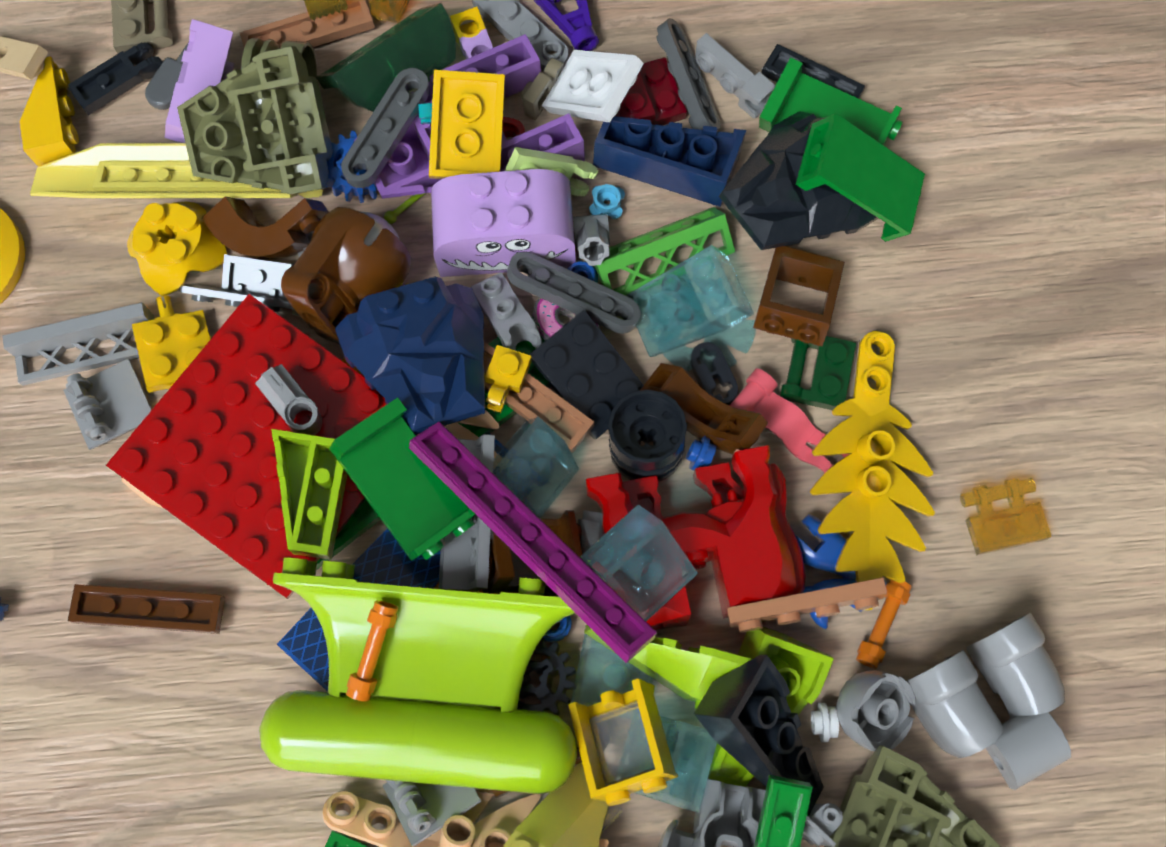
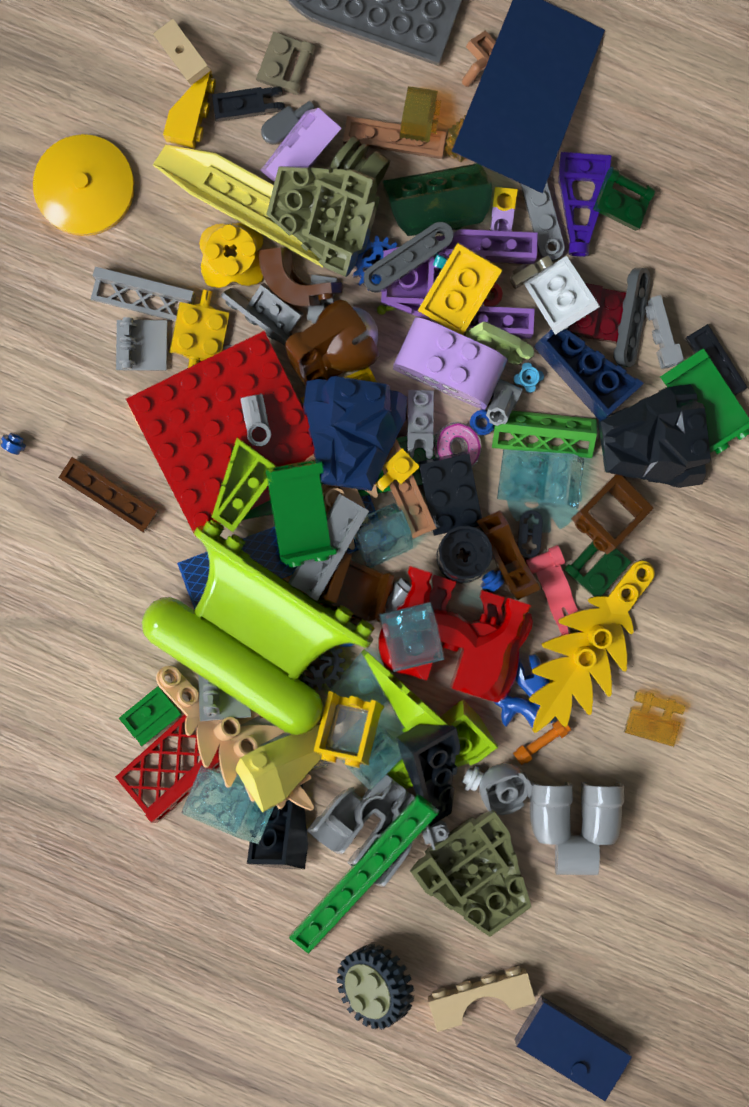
camera: 25 degrees right, 15 degrees up
(362, 683) = (217, 618): orange bar -> none
(533, 542) = (355, 588): magenta tile -> none
(573, 292) = (470, 434): dark grey plate -> none
(823, 602) = (508, 715): nougat plate -> none
(862, 172) = (697, 459): green panel -> none

